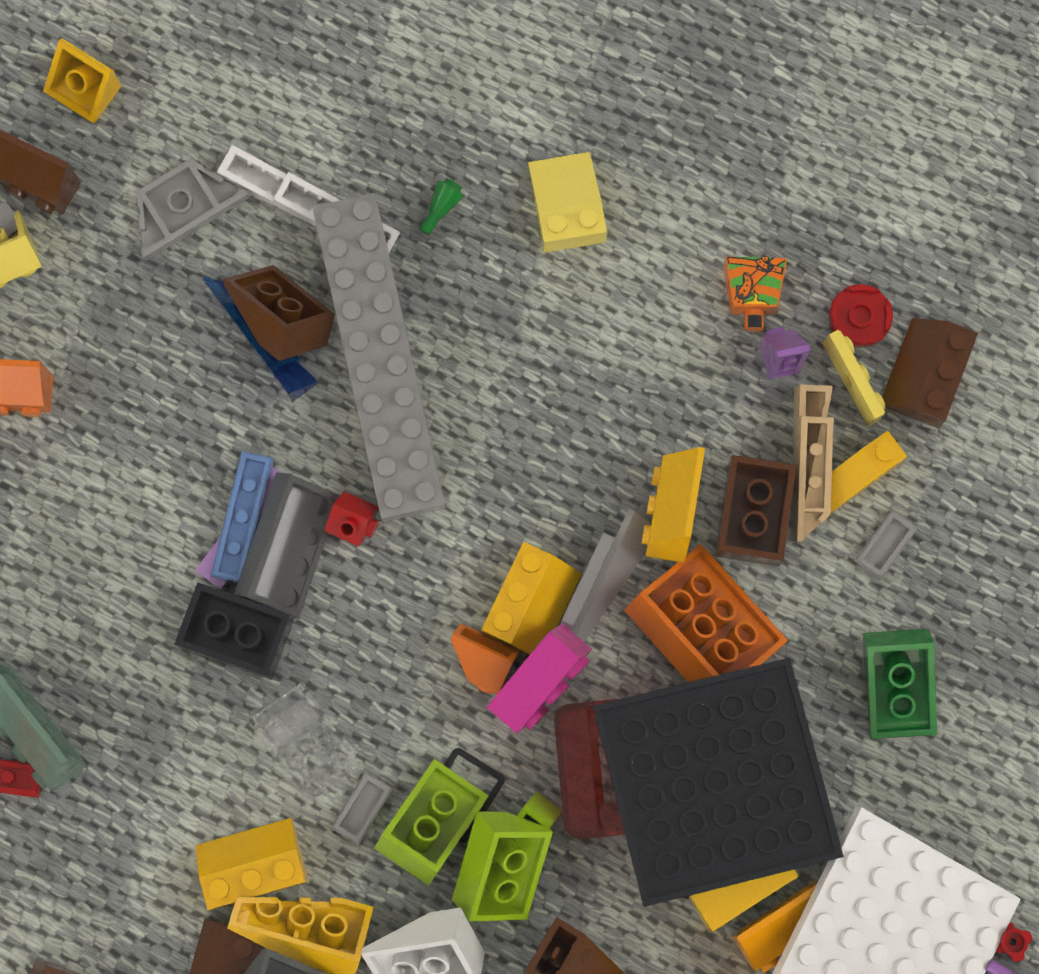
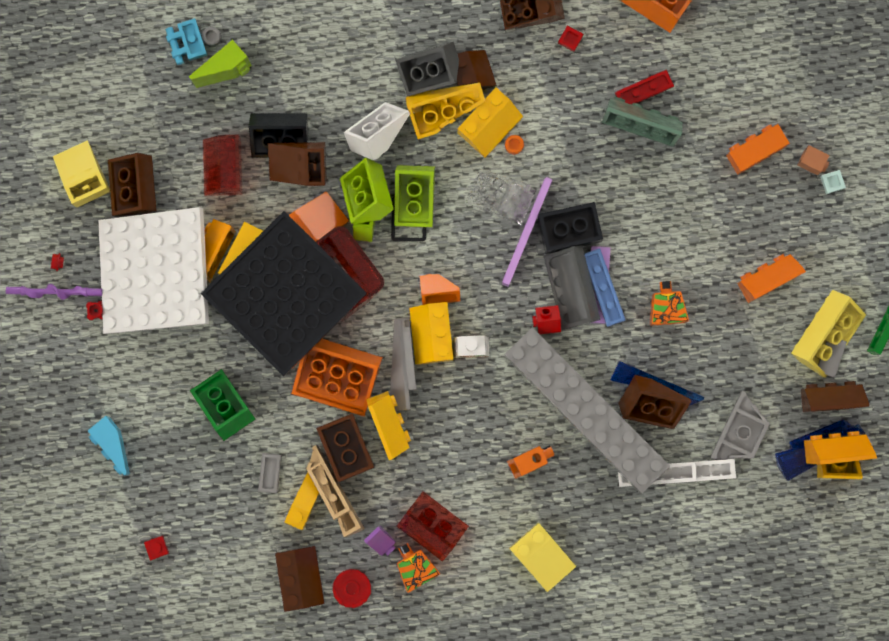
camera: 145 degrees right, 5 degrees up
(48, 920) = (570, 38): none -> red plate
(66, 92) = (838, 448): none -> light orange slope
(94, 120) = (793, 461): none -> clear blue wedge
(169, 435) = (667, 306): none -> torso
(235, 810) = (514, 144): none -> orange tile
(300, 666) = (526, 232): none -> lavender tile
(362, 808) = (453, 182): light grey tile -> none
(445, 197) = (607, 518): green cone -> none
(487, 547) = (470, 346): none -> white torso
(503, 336) = (524, 463): none -> orange torso
(541, 679) = (401, 294): dark pink brick -> none
(594, 875) = (319, 216): none -> orange slope
(695, 330) = (432, 526): none -> clear red slope
(854, 377) = (335, 552): light yellow tile -> none

